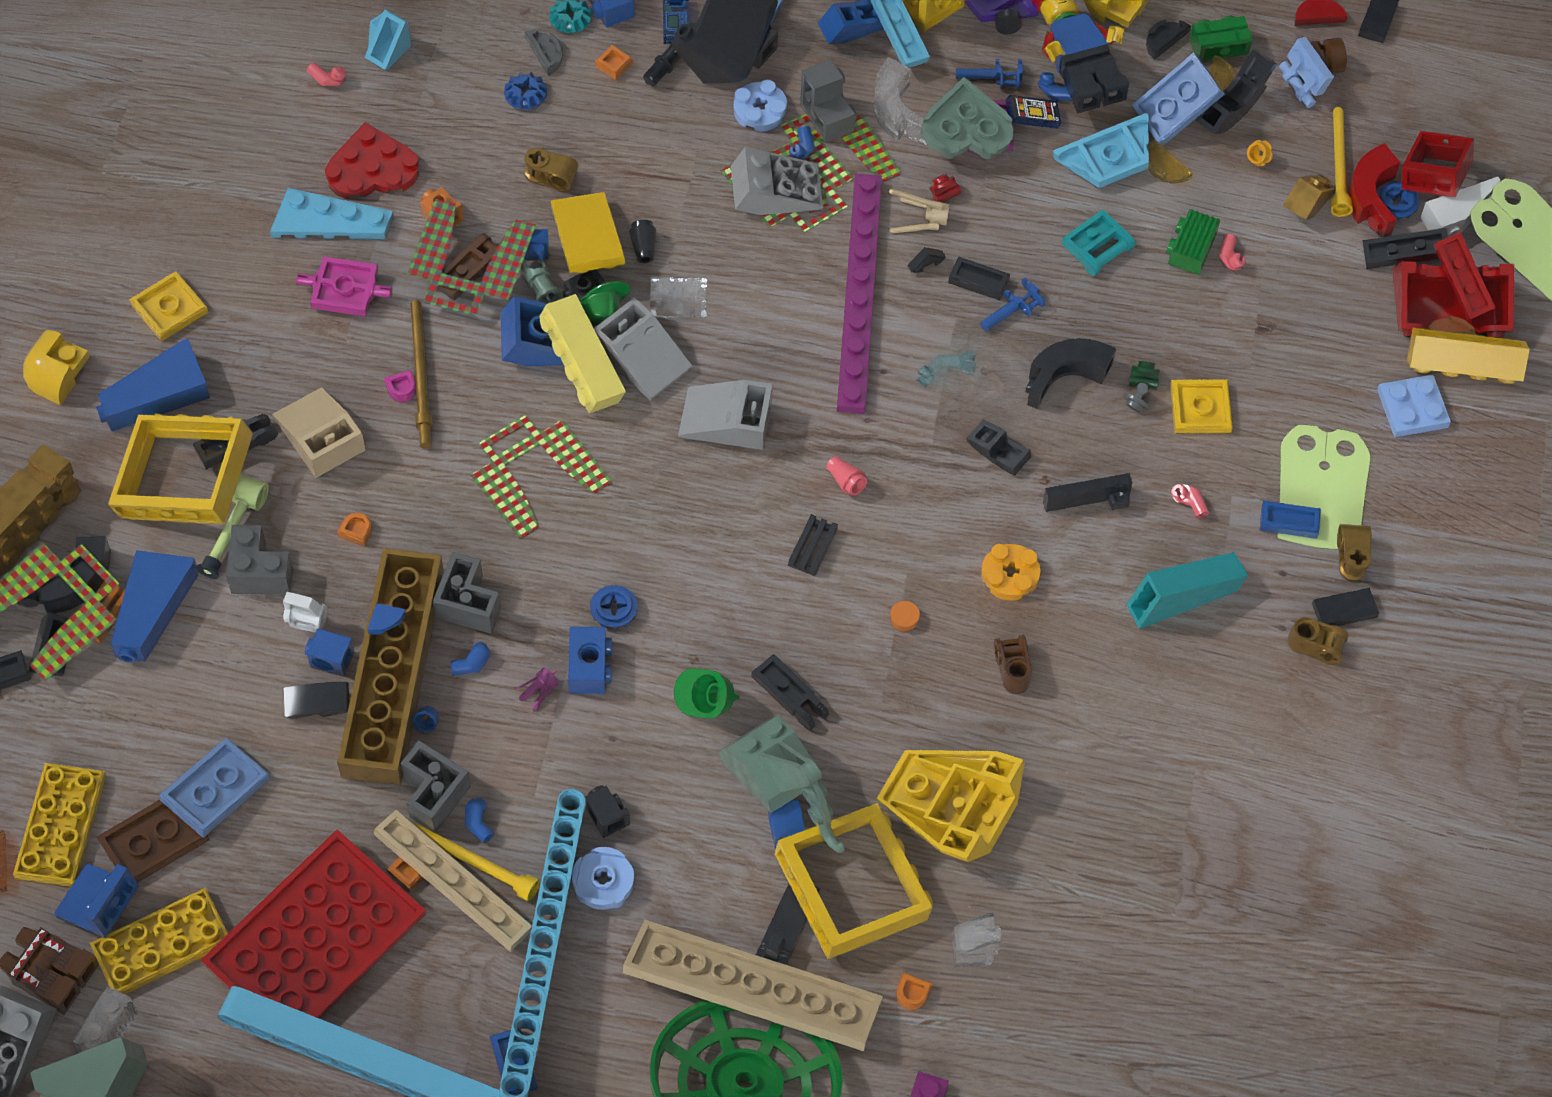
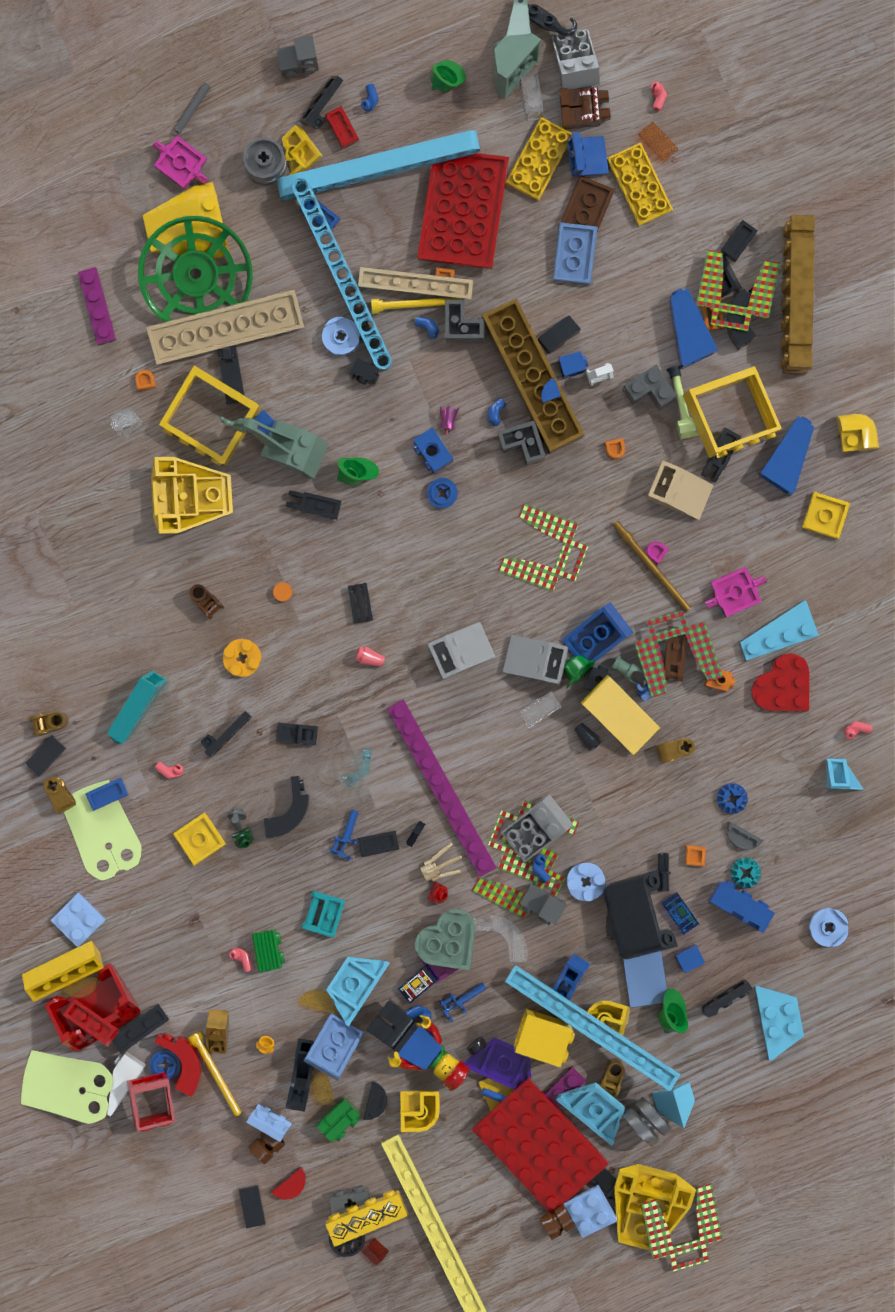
camera: 150 degrees right, 25 degrees up
(430, 723) = (494, 362): blue hinge -> none
(581, 354) = (565, 630): light yellow brick -> none

